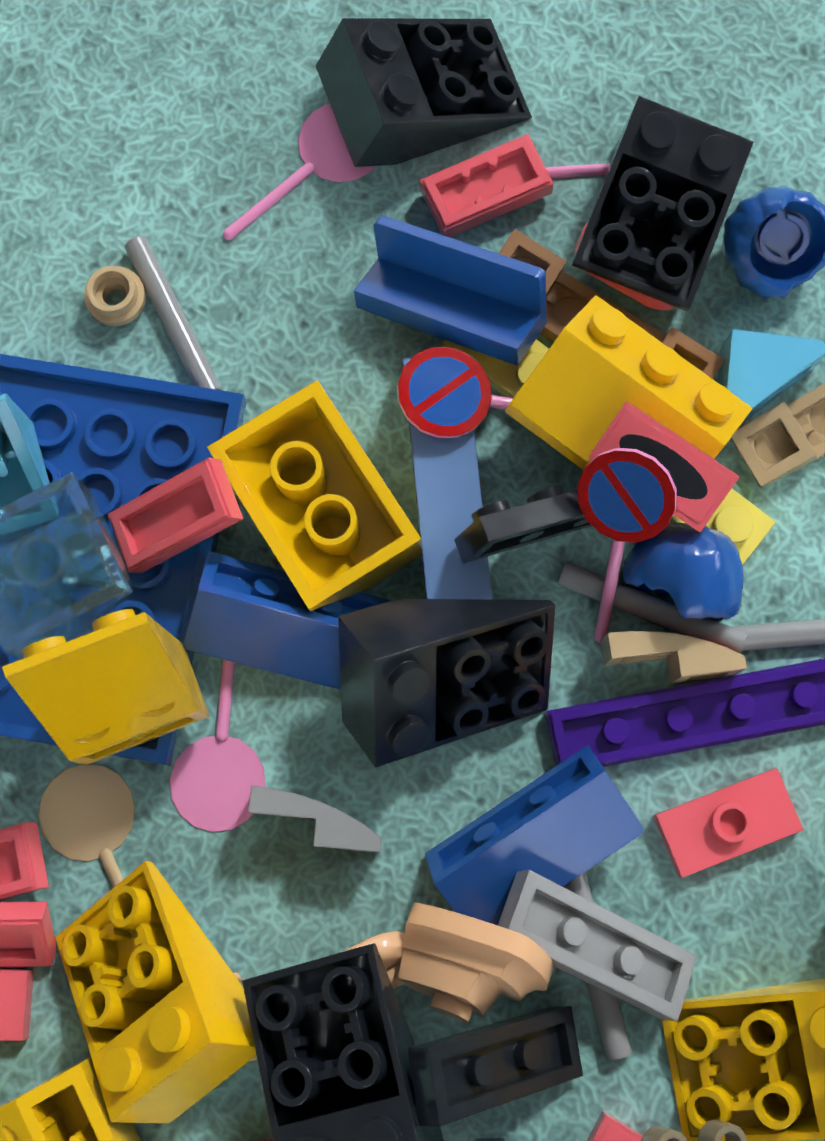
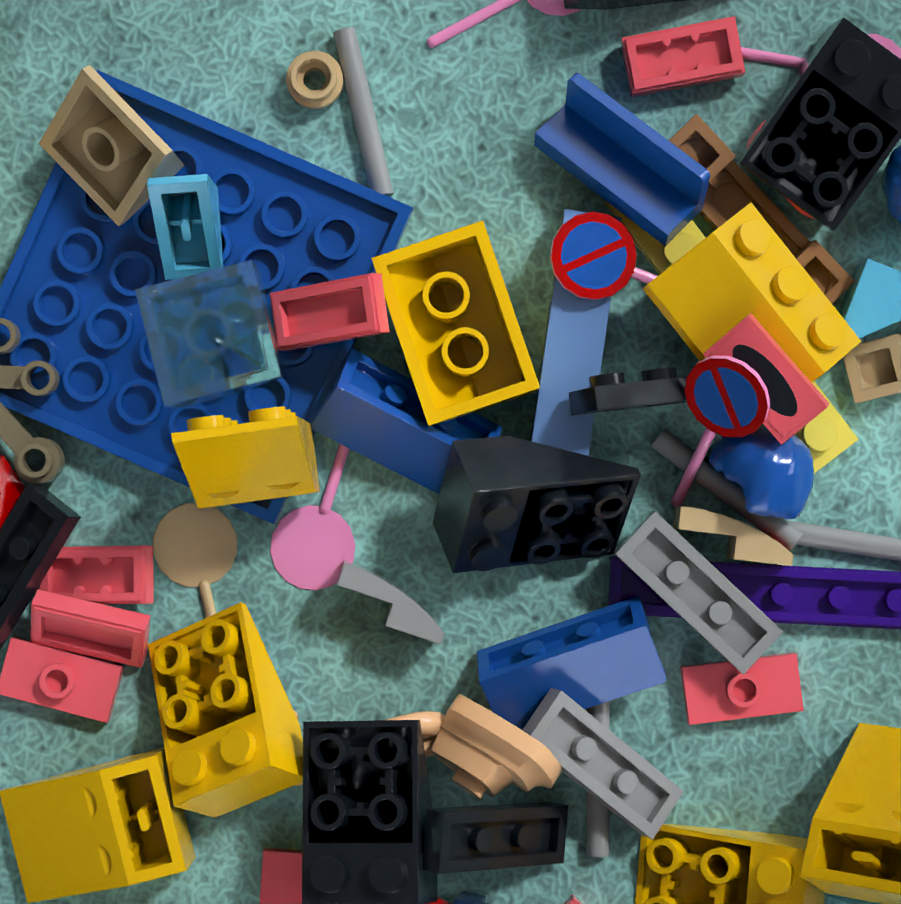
camera: 15 degrees right, 10 degrees up
(653, 724) = (698, 592): none -> light grey plate

